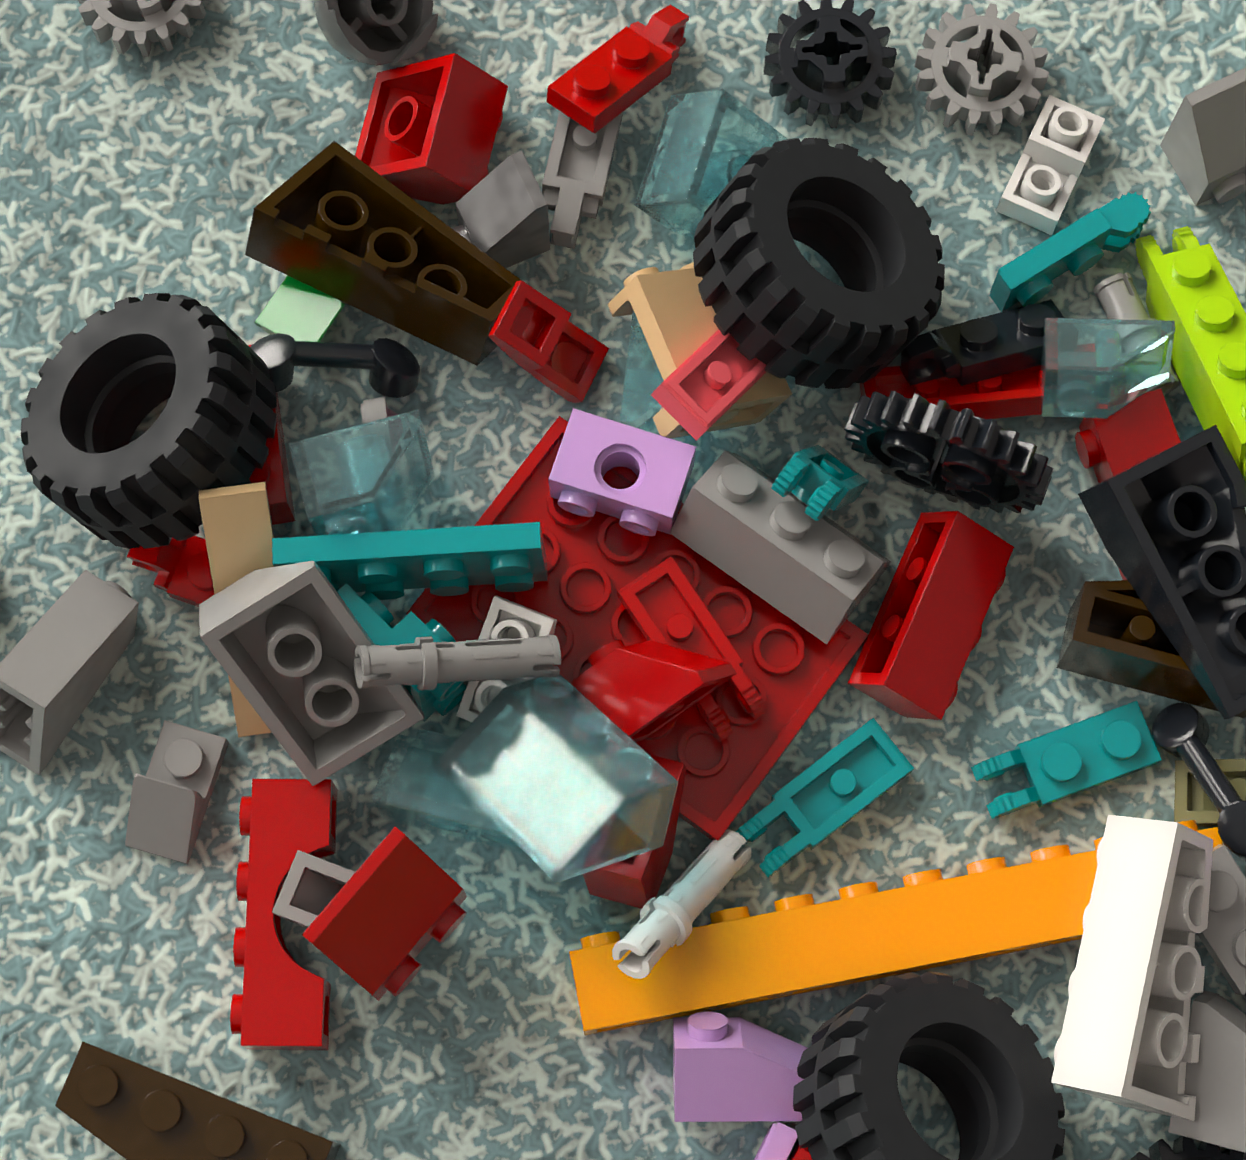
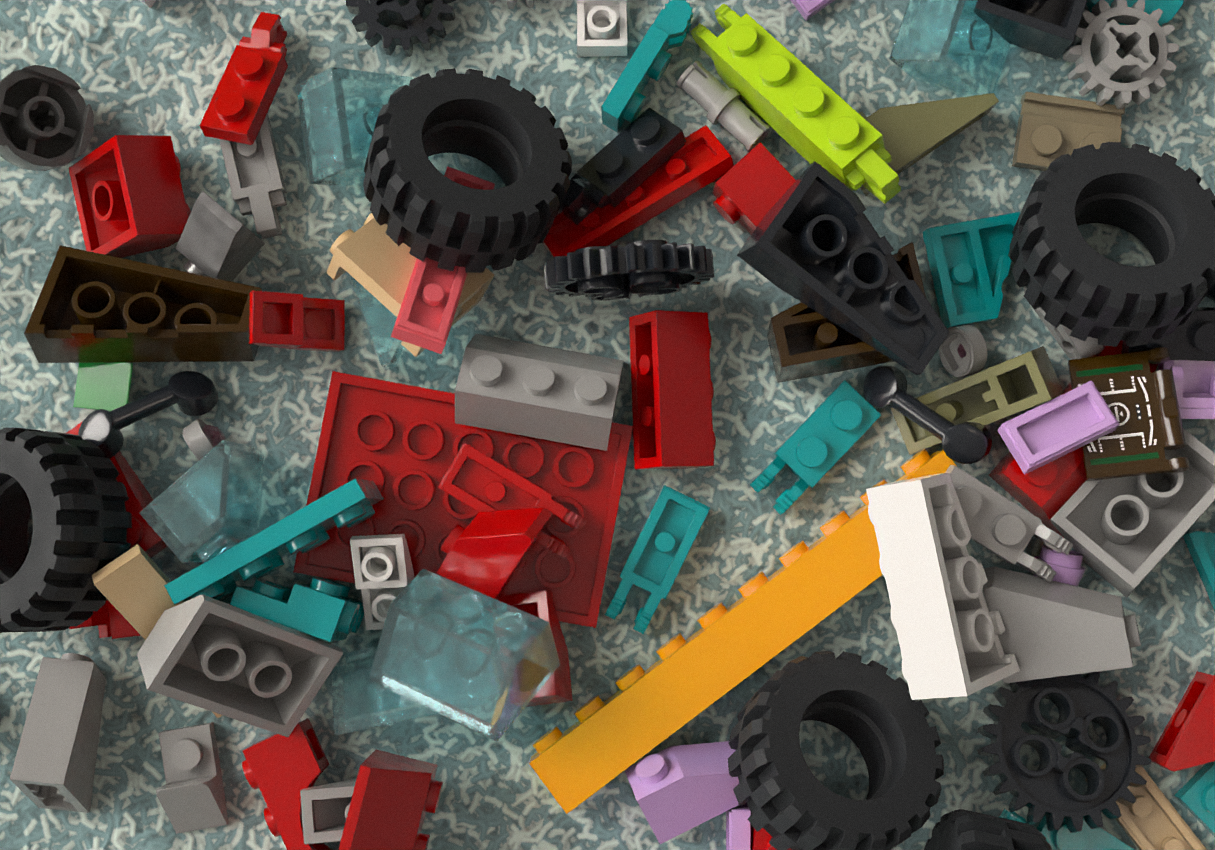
camera: 25 degrees left, 10 degrees up
(432, 662) = (337, 613): light grey pin -> none
(599, 444) = (367, 390): lavender brick -> none
(671, 916) = (589, 705): white pin -> none
(819, 481) = (545, 334): teal hinge -> none
(1101, 364) = (709, 146): clear light blue slope -> none

